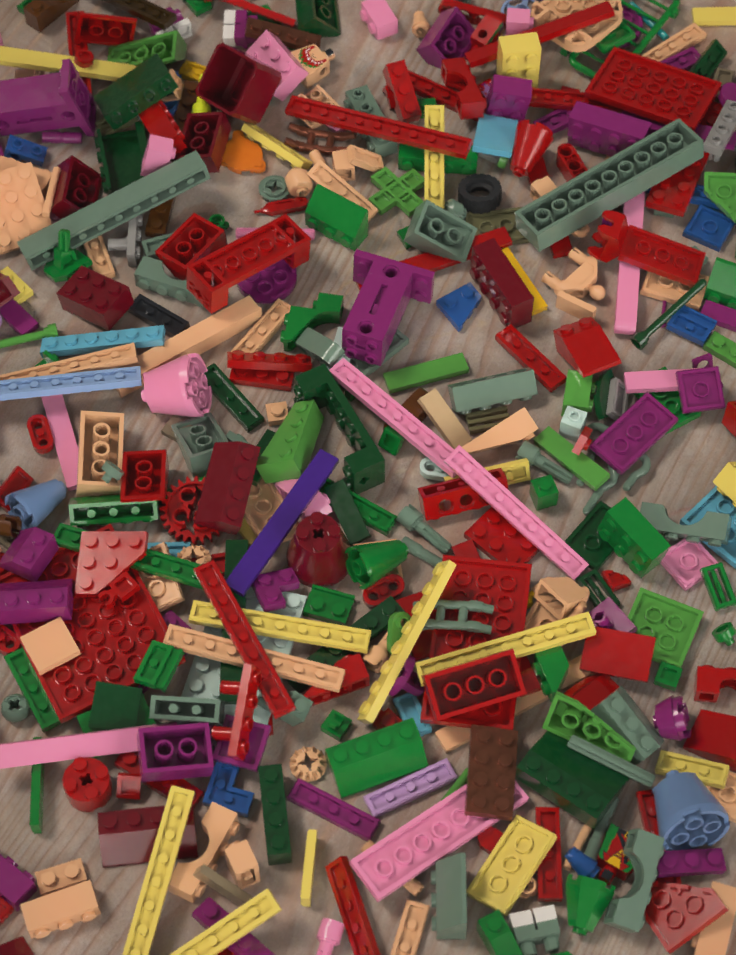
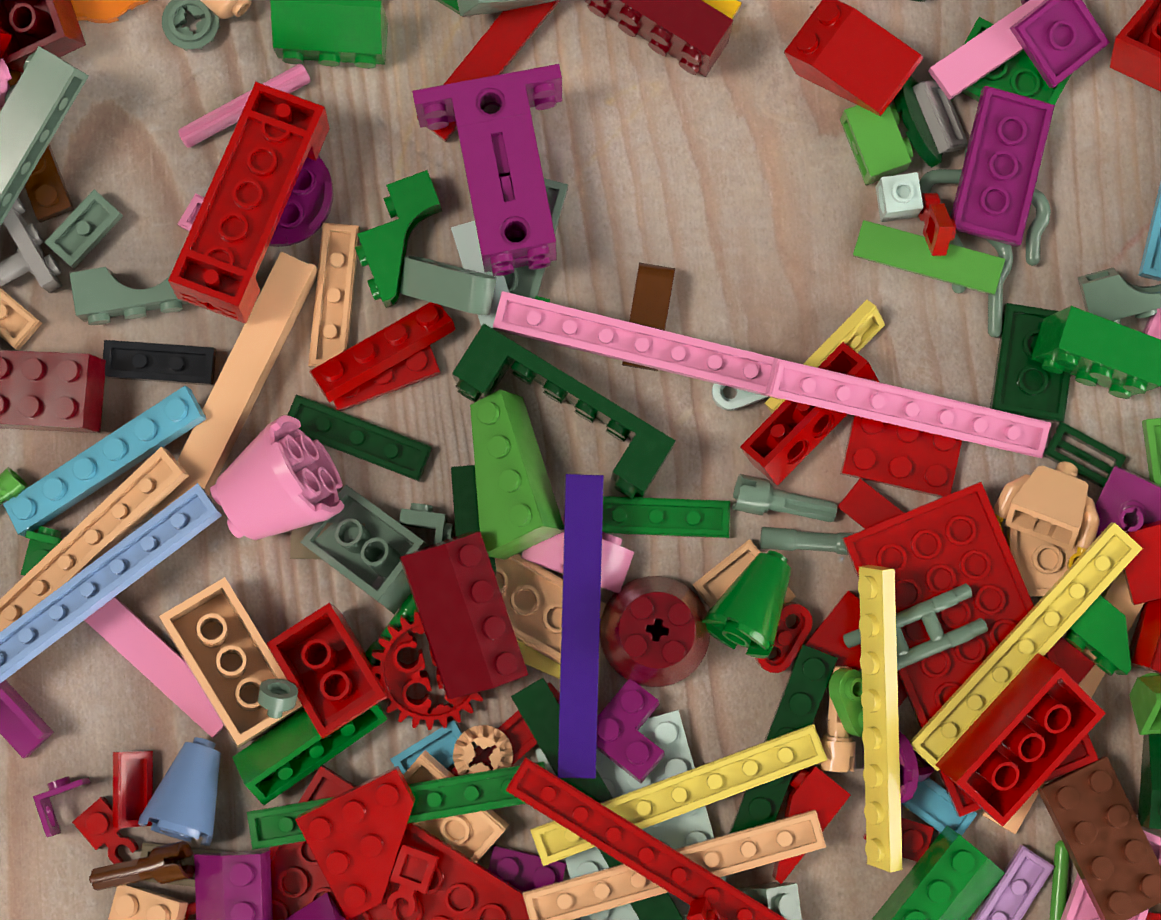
camera: 30 degrees left, 25 degrees up
(40, 435) = (112, 672): red plate -> none
(189, 244) = (134, 213): red slope -> none
(219, 220) = (134, 132): green plate -> none
(276, 413) = (445, 426): light nougat plate -> none
(284, 206) = (226, 46): red piece -> none
(328, 605) = (716, 702): green plate -> none
(336, 725) = (839, 884): green tile -> none
(347, 512) = (655, 540): dark green tile -> none
(391, 440) = (646, 382): green tile -> none
(425, 373) = (626, 227): bright green tile -> none
(444, 419) = (708, 301): tan tile -> none
(459, 304) = (606, 75): blue wing -> none
(487, 417) = (788, 236): olive tile -> none
(493, 389) = (749, 207): sand green brick -> none
(509, 431) = (810, 270): light nougat slope -> none
(530, 357) = (769, 113): red plate -> none
(534, 456) = (867, 284): sand green piece -> none
(543, 492) = (922, 340): green brick -> none
(615, 580) = (1097, 422): red tile -> none

